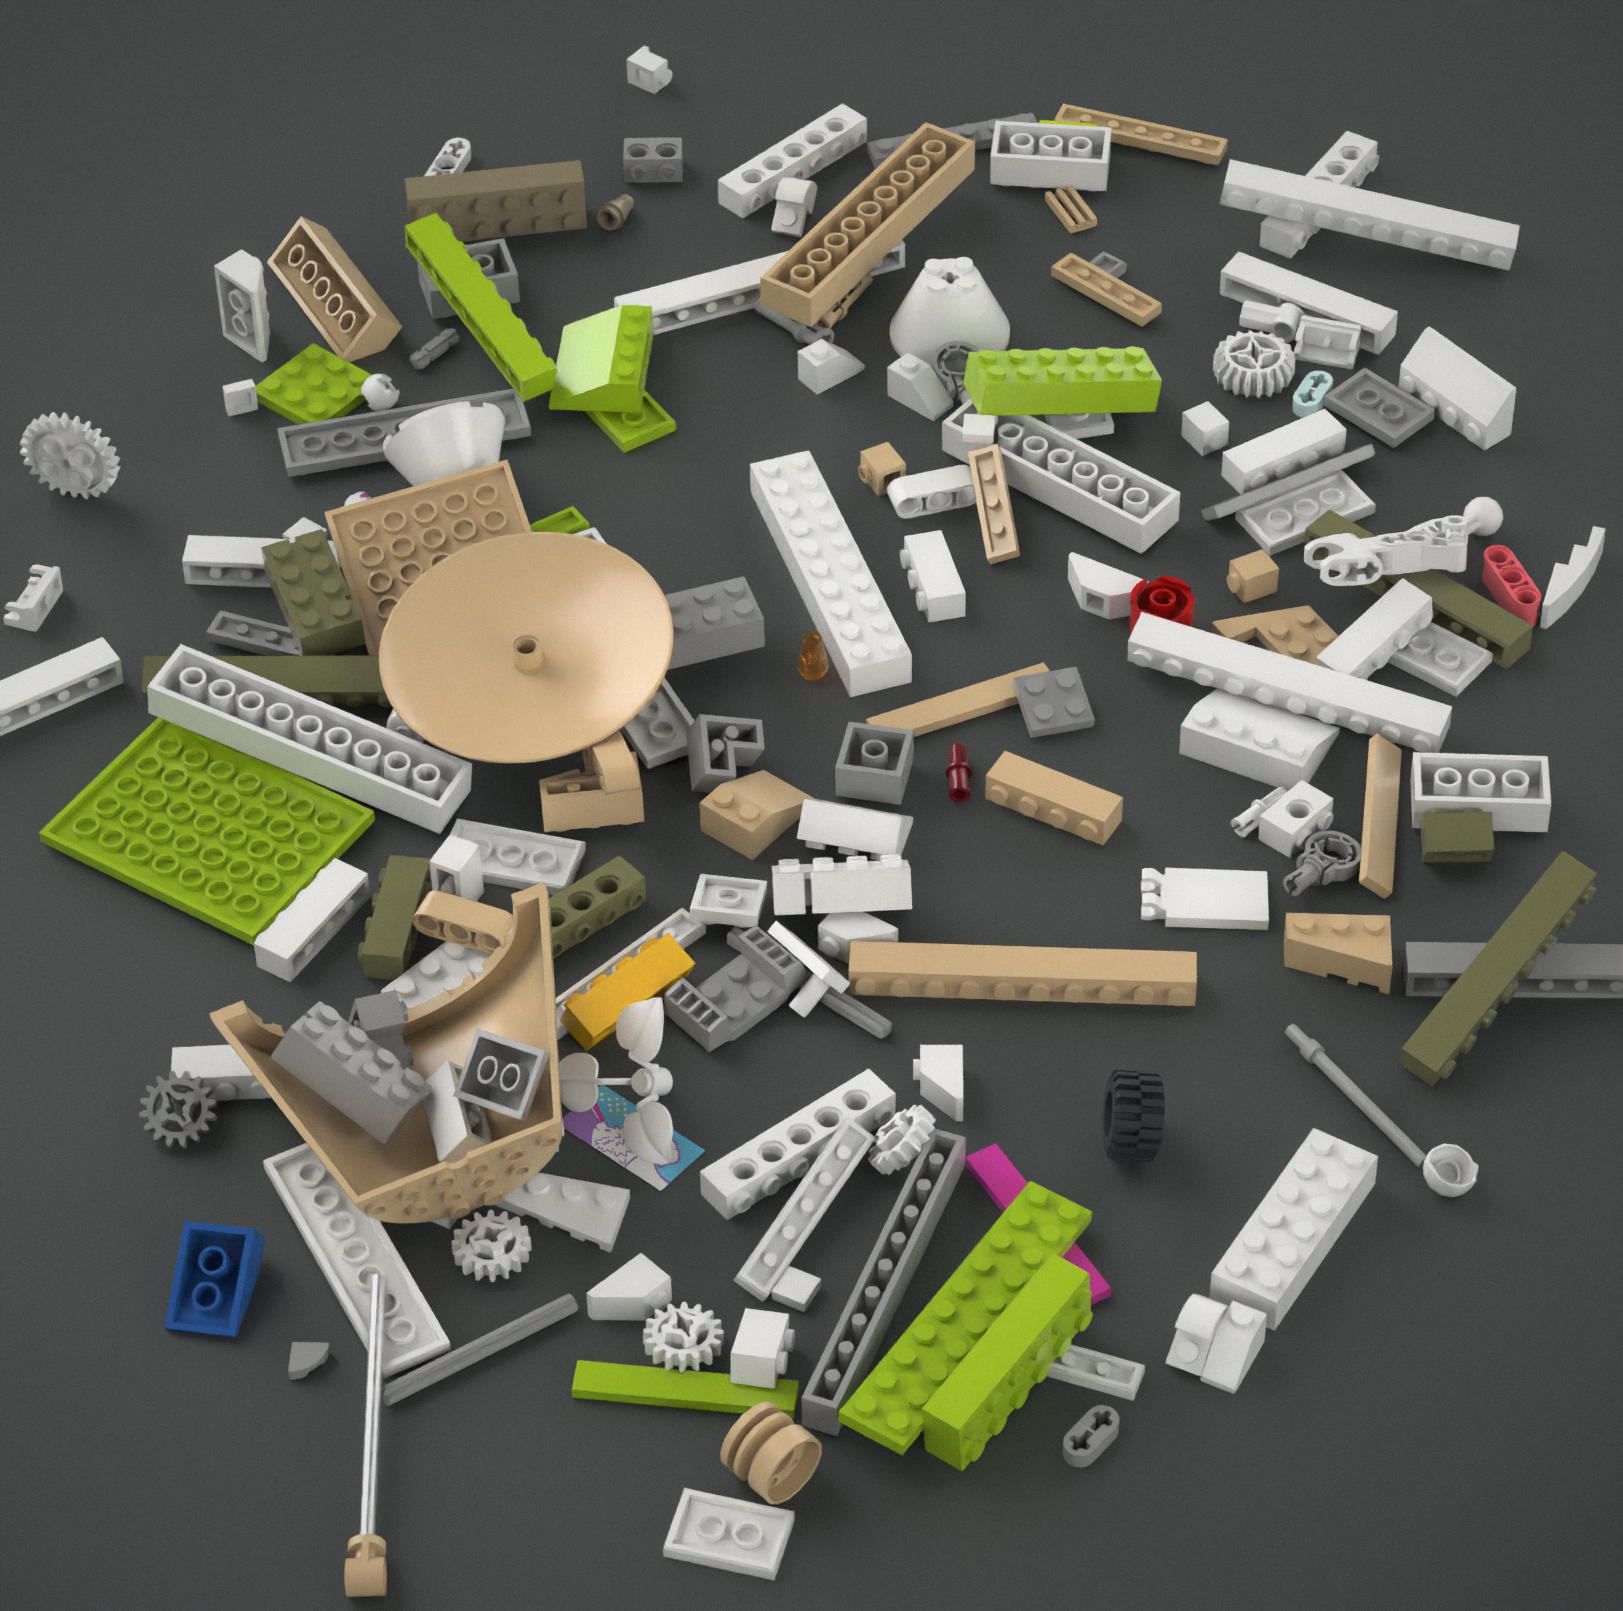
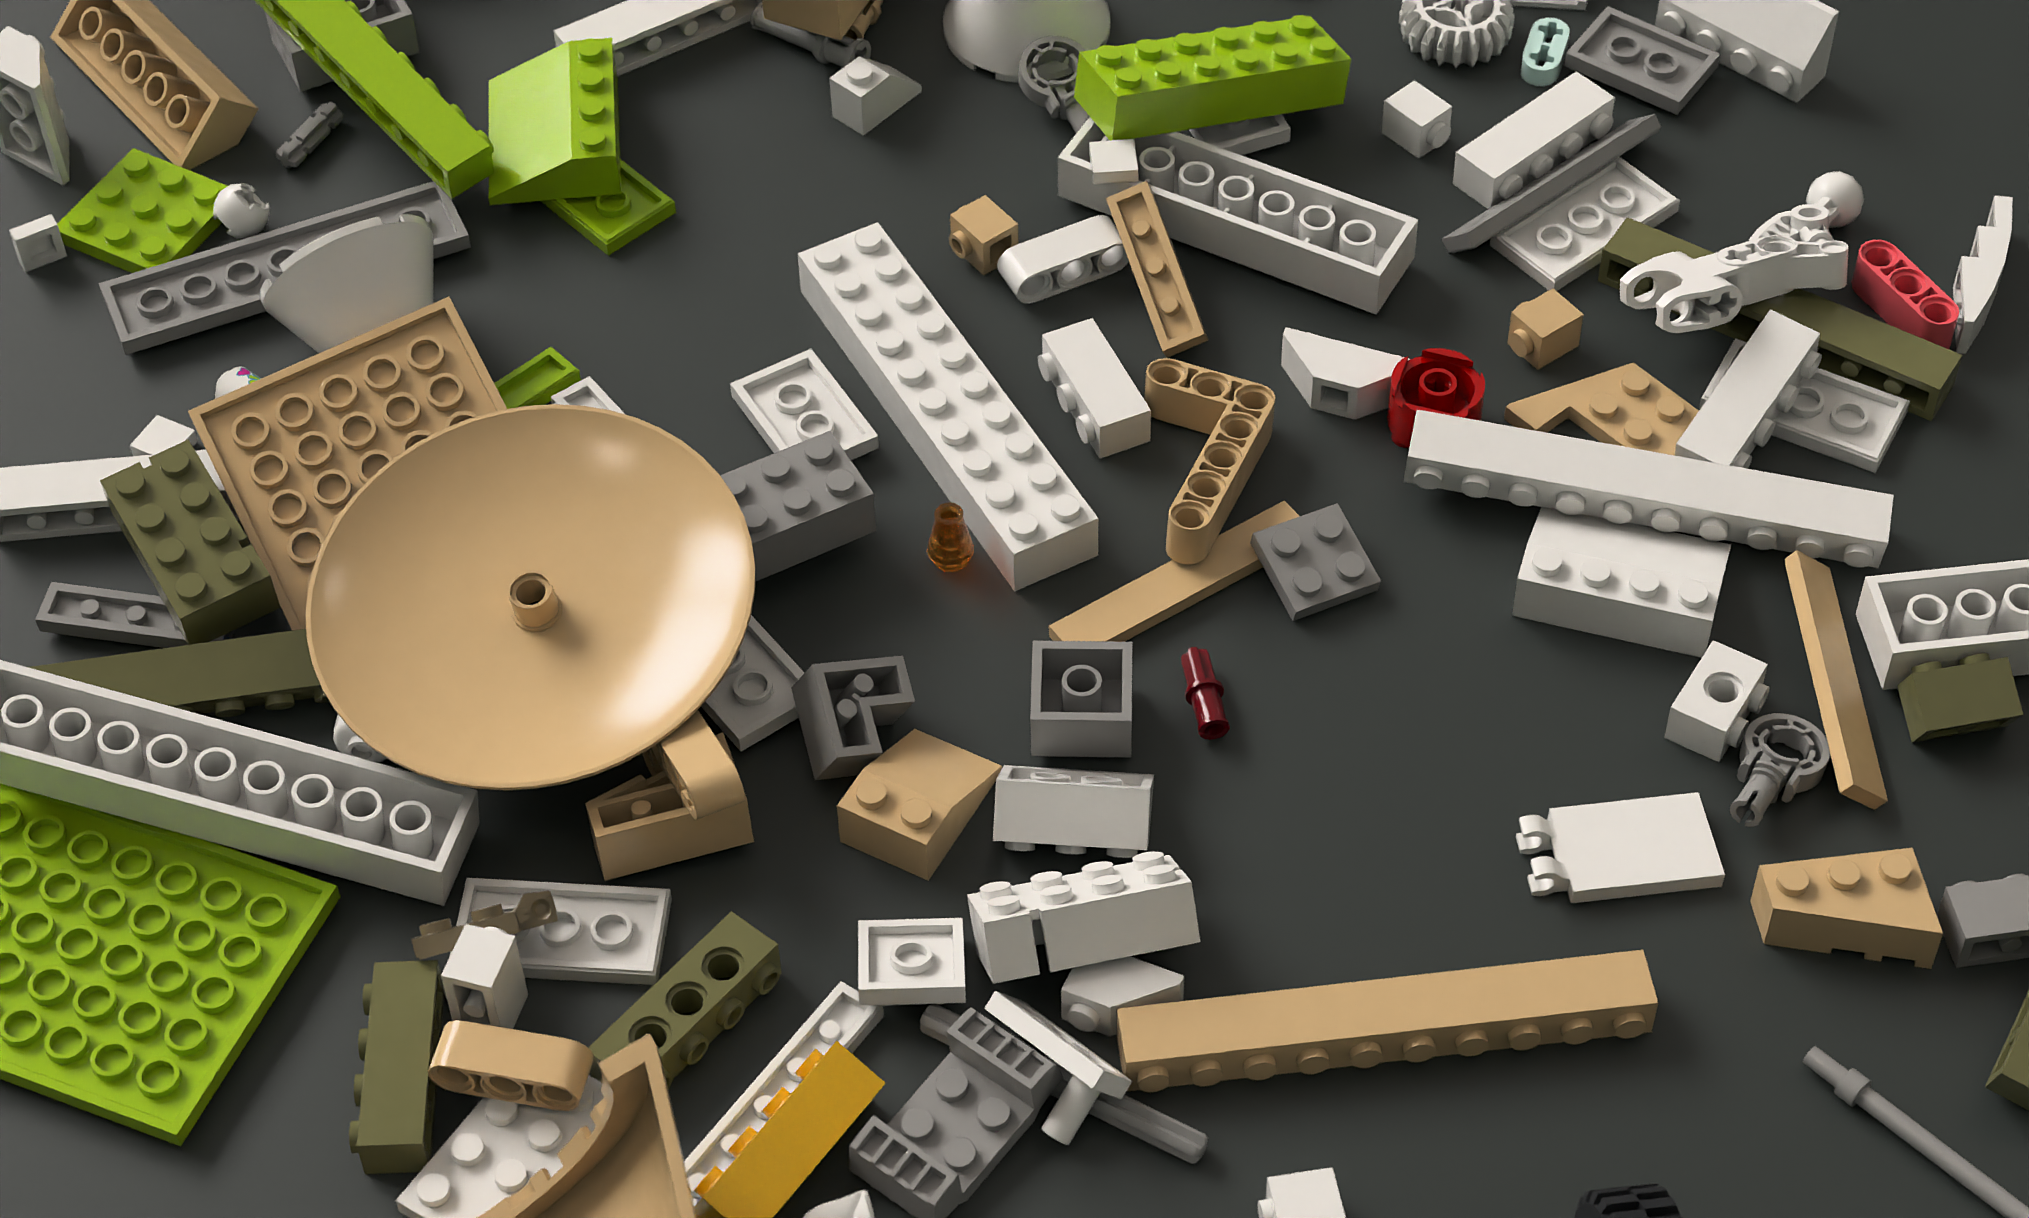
camera: 10 degrees left, 5 degrees up
(312, 919) = (266, 1090): white brick -> none
(494, 839) = (531, 911): none -> dark tan hinge
(733, 557) = (800, 402): none -> white plate
(917, 387) = (1005, 108): white slope -> none
(1022, 611) = (1239, 423): none -> tan beam
(1054, 798) = (1356, 717): tan brick -> none
(1251, 817) = (1659, 696): white axle -> none

